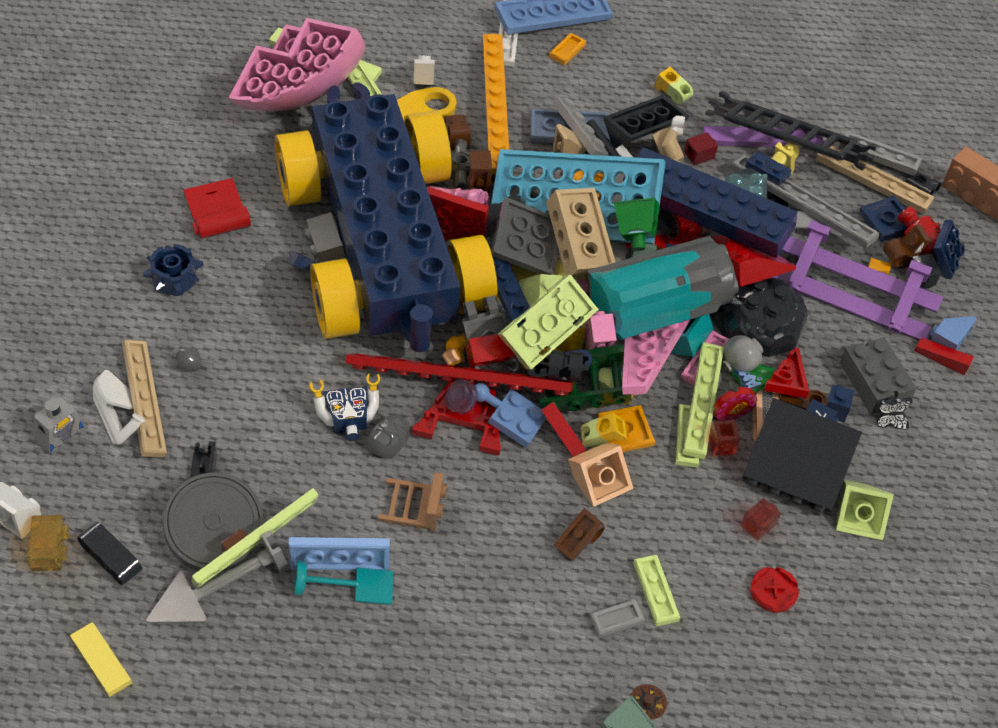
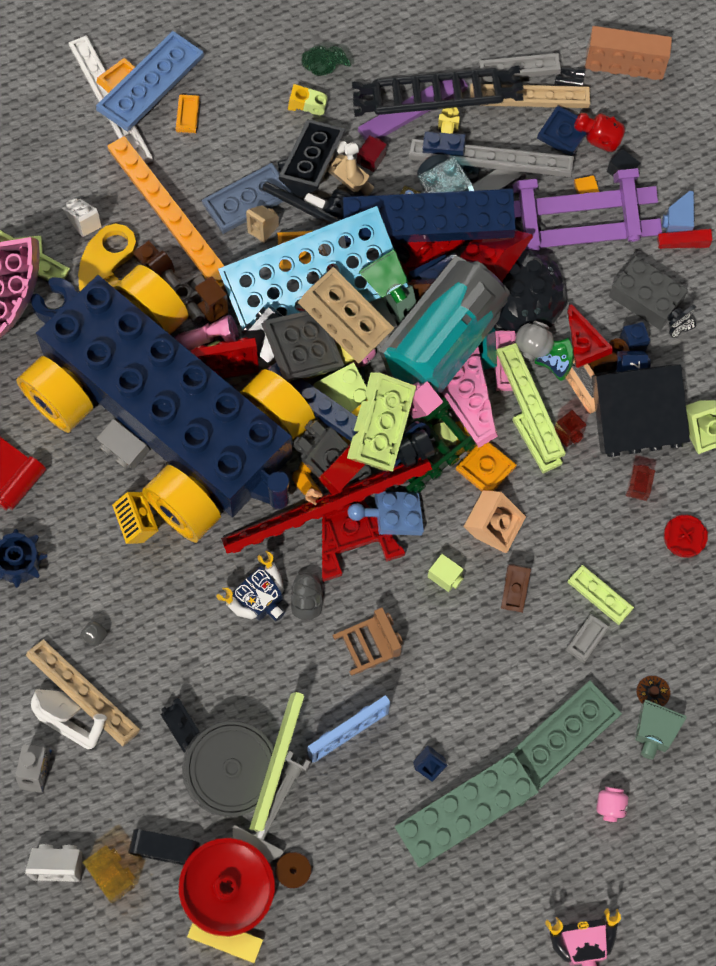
camera: 30 degrees left, 15 degrees up
(133, 614) = (226, 887): none -> red dish
(203, 641) = (293, 870): none -> reddish brown piece
(233, 539) = (262, 776): reddish brown tile -> none
(291, 294) = (135, 517): none -> yellow brick
(300, 260) = (122, 482): dark blue beam -> none
(371, 584) = (385, 734): teal piece -> none
(392, 631) = (430, 763): none -> dark blue slope
(394, 687) = (466, 810): none -> sand green plate
(461, 396) = (345, 526): plate -> none
(520, 684) = (565, 734): none -> sand green plate
(524, 487) = (446, 573): none -> yellowish green brick
(563, 430) = (443, 502): red piece -> none
(579, 127) = (259, 196): light grey plate -> none
(603, 430) = (474, 483): leg -> none
(708, 64) = (323, 60): none -> clear green hair
(735, 405) = (559, 393): red tile -> none
(901, 250) = (599, 156): reddish brown plate -> none
(949, 249) = (633, 135): dark blue tile -> none

